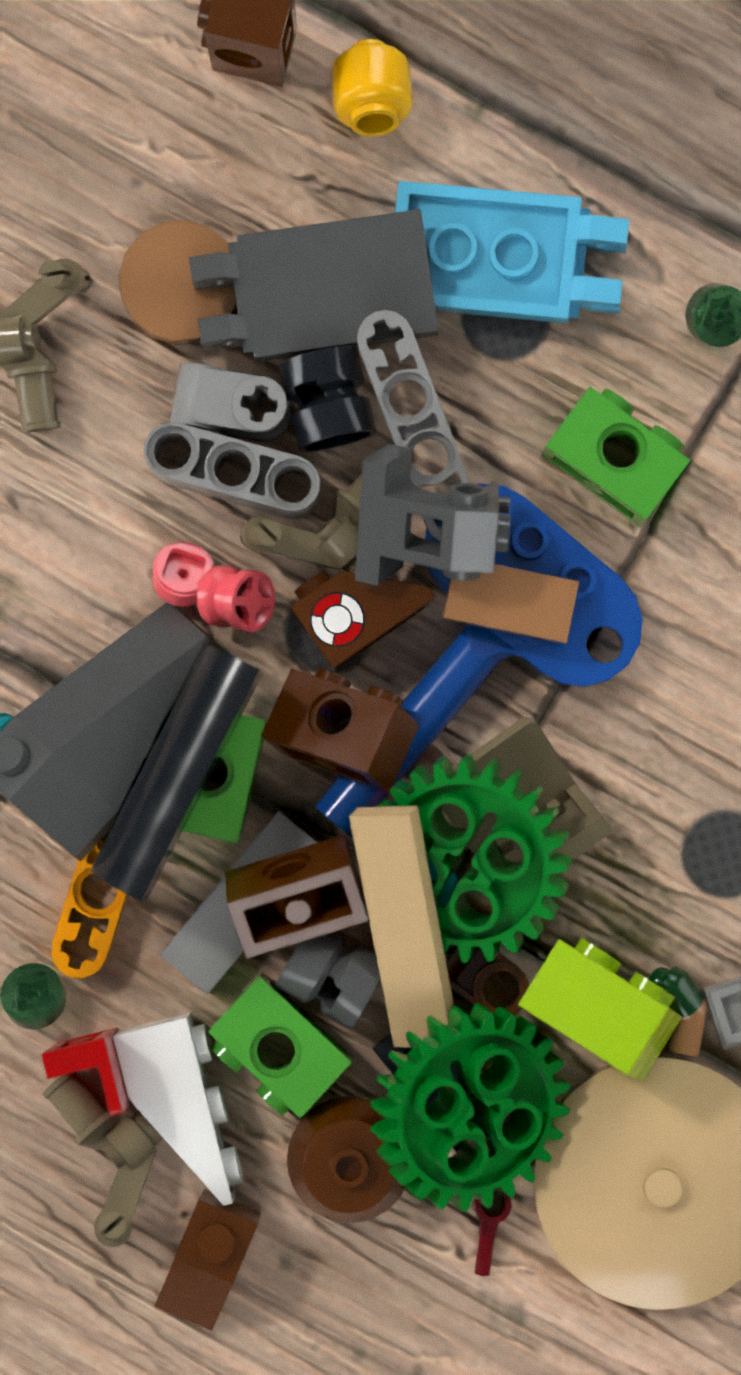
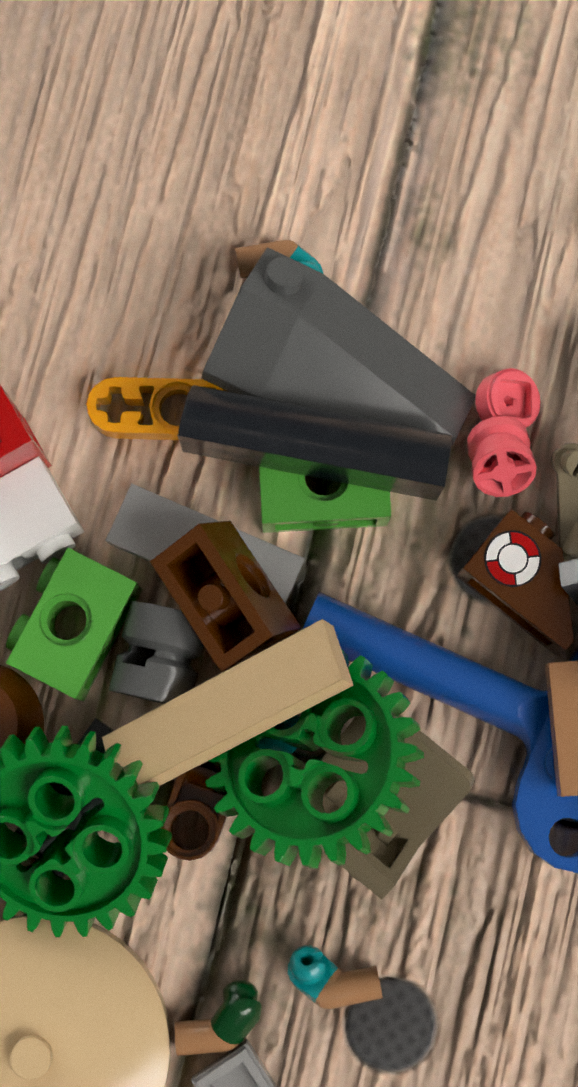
camera: 75 degrees right, 5 degrees down
(33, 996) = (59, 375): clear green tile -> none
(365, 751) = (390, 622): reddish brown brick -> none
(601, 1011) = (195, 938): lime brick -> none
(673, 901) = (329, 985): none -> arm

